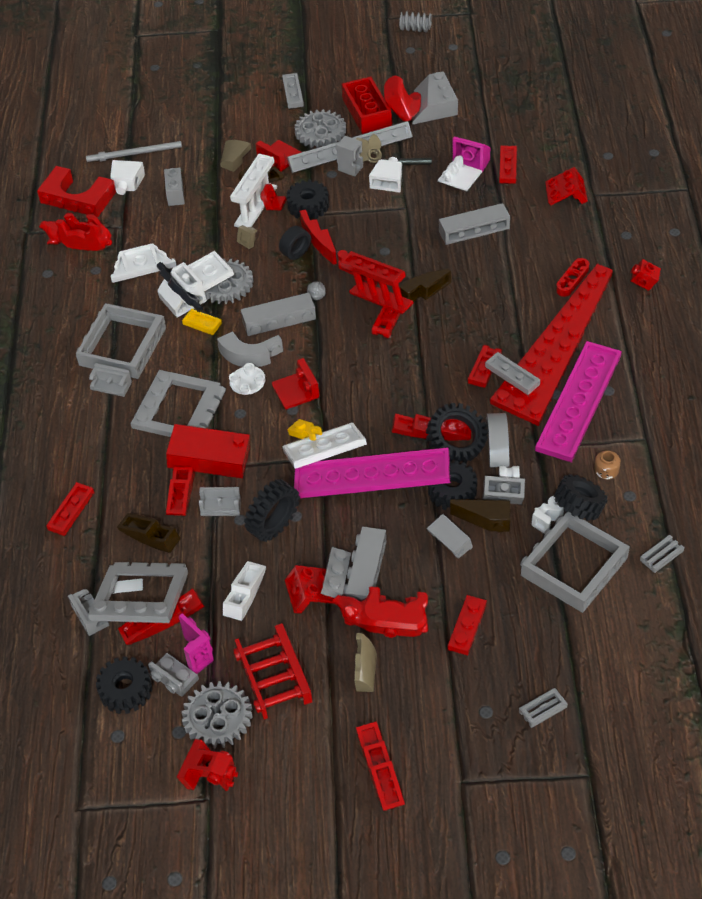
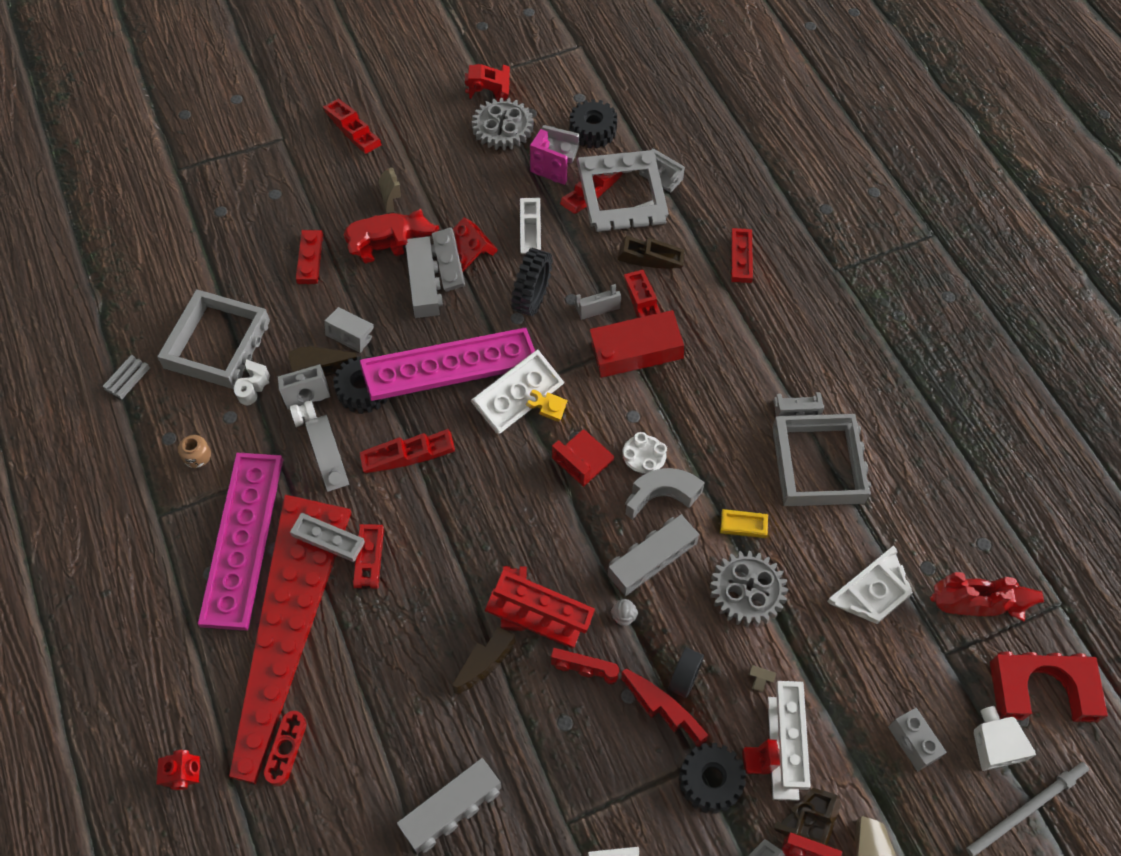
camera: 155 degrees right, 10 degrees up
(157, 392) = (735, 395): light grey hinge -> none
(185, 285) = (780, 556): white piece -> none
(287, 656) = (462, 181): red fence -> none
(477, 428) = (380, 454): black tyre -> none
(547, 714) = (225, 209): light grey tile -> none
(580, 497) = (202, 395): black tyre -> none

